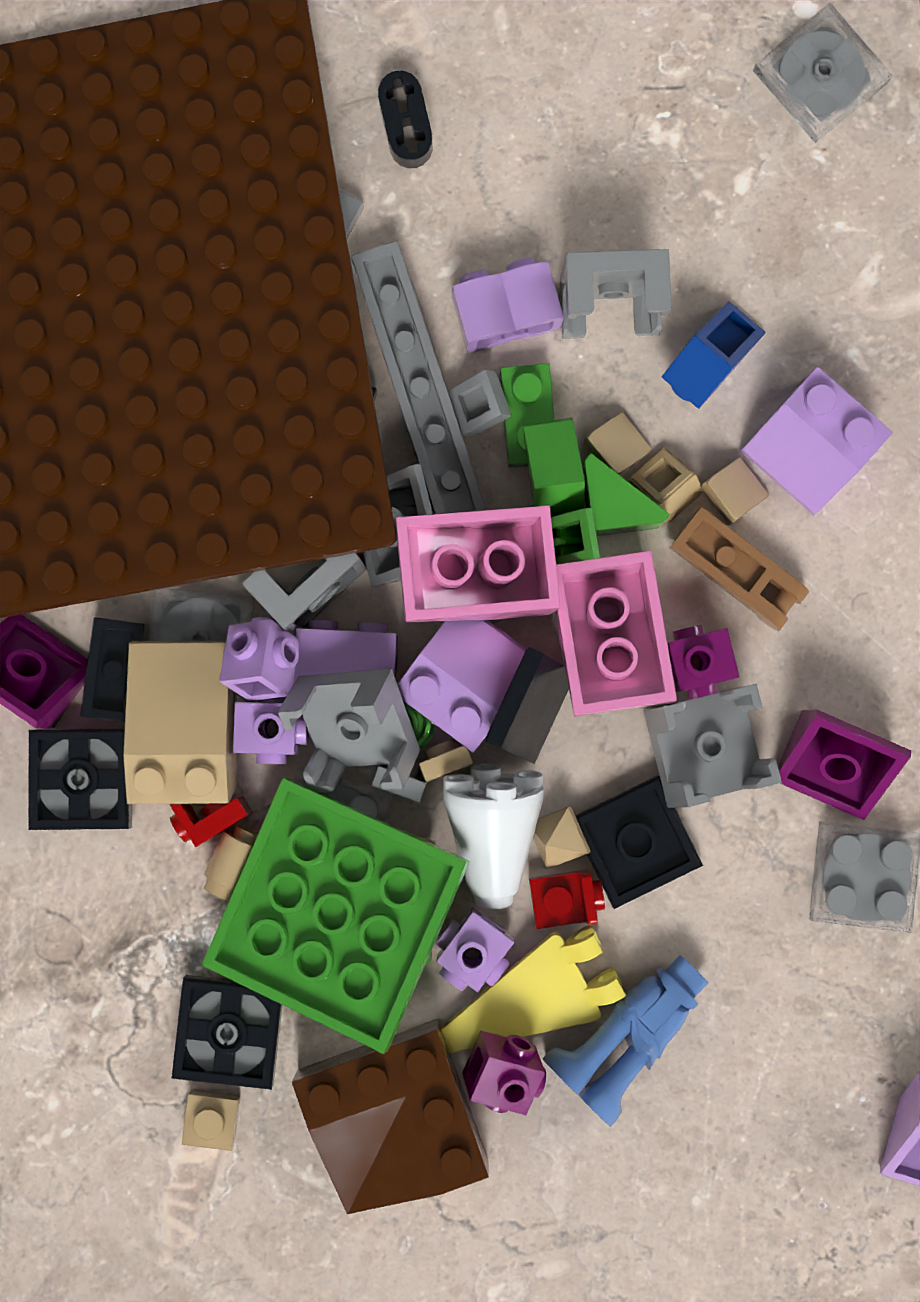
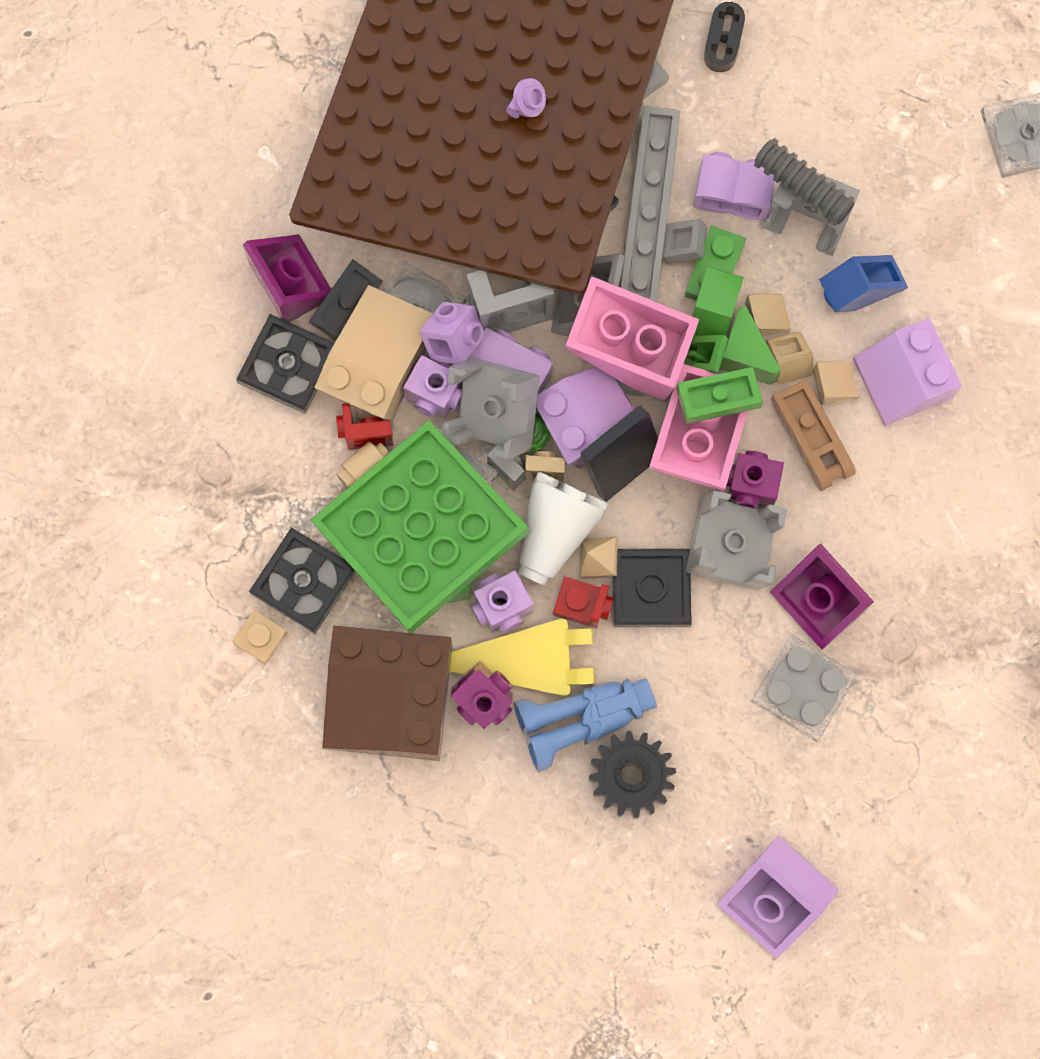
camera: 25 degrees right, 10 degrees down
(209, 323) = (528, 99): none -> lavender plate
(600, 273) = (804, 181): none -> dark grey piece
(617, 589) = (719, 395): none -> bright green plate
(733, 1100) = (638, 754): none -> black gear

